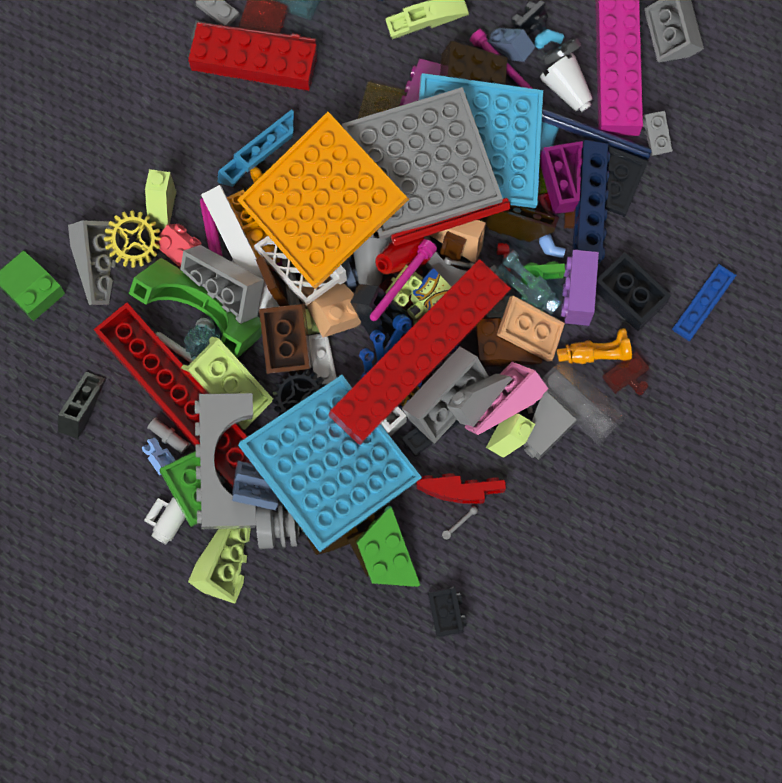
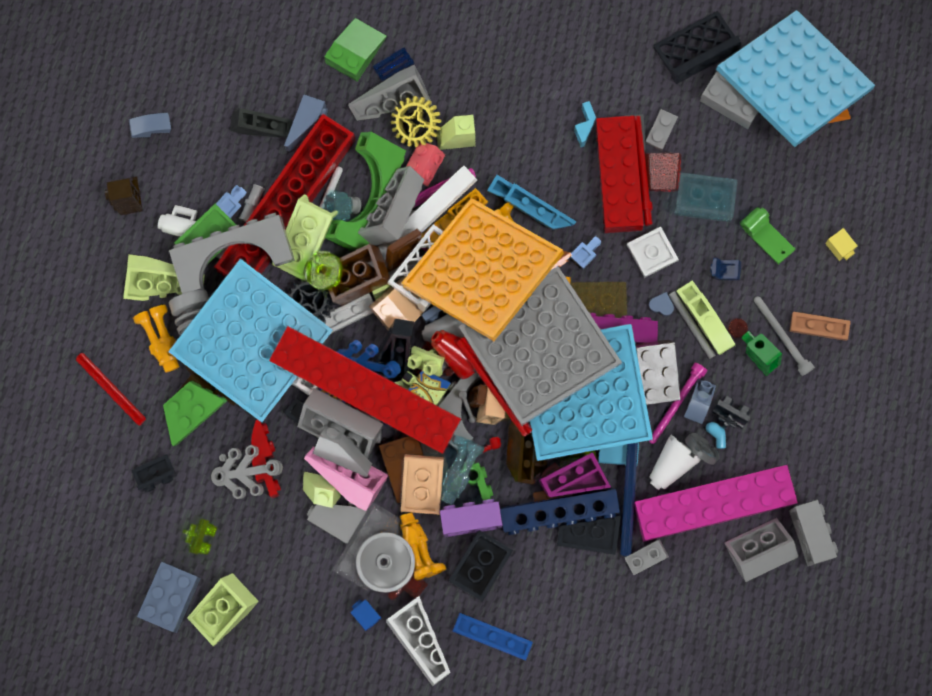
camera: 80 degrees right, 5 degrees up
(40, 526) = (148, 124): none -> sand blue slope
(54, 235) = (384, 62): none -> clear blue tile
(87, 350) = (305, 119): none -> sand blue slope
(116, 568) = (124, 195): none -> dark brown wedge
(196, 79) = (584, 129): none -> medium azure slope
(251, 487) = (209, 279): sand blue slope -> none
(262, 375) = (316, 263): none -> clear neon green plate
(306, 570) = (161, 346): none -> light orange piece
(323, 107) = (584, 253): none -> light blue plate
(335, 641) = (111, 389): none -> red axle
(344, 48) = (652, 252): none -> white plate
(401, 55) = (662, 305): none -> sand blue tile
(425, 250) = (460, 370): dark pink piece -> none
(429, 33) = (692, 325): none -> light grey bar
(471, 512) = (243, 472): none -> light grey plant
(528, 579) = (203, 528): none -> clear neon green hips
(549, 247) = (507, 484): light blue arm -> none
(590, 626) = (168, 597): none -> sand blue brick
(614, 375) = (397, 569): none -> light grey dish
(615, 571) = (222, 609): none -> yellowish green slope
(655, 421) = (365, 614): none -> blue brick
(691, 373) = (419, 640): none -> white wedge

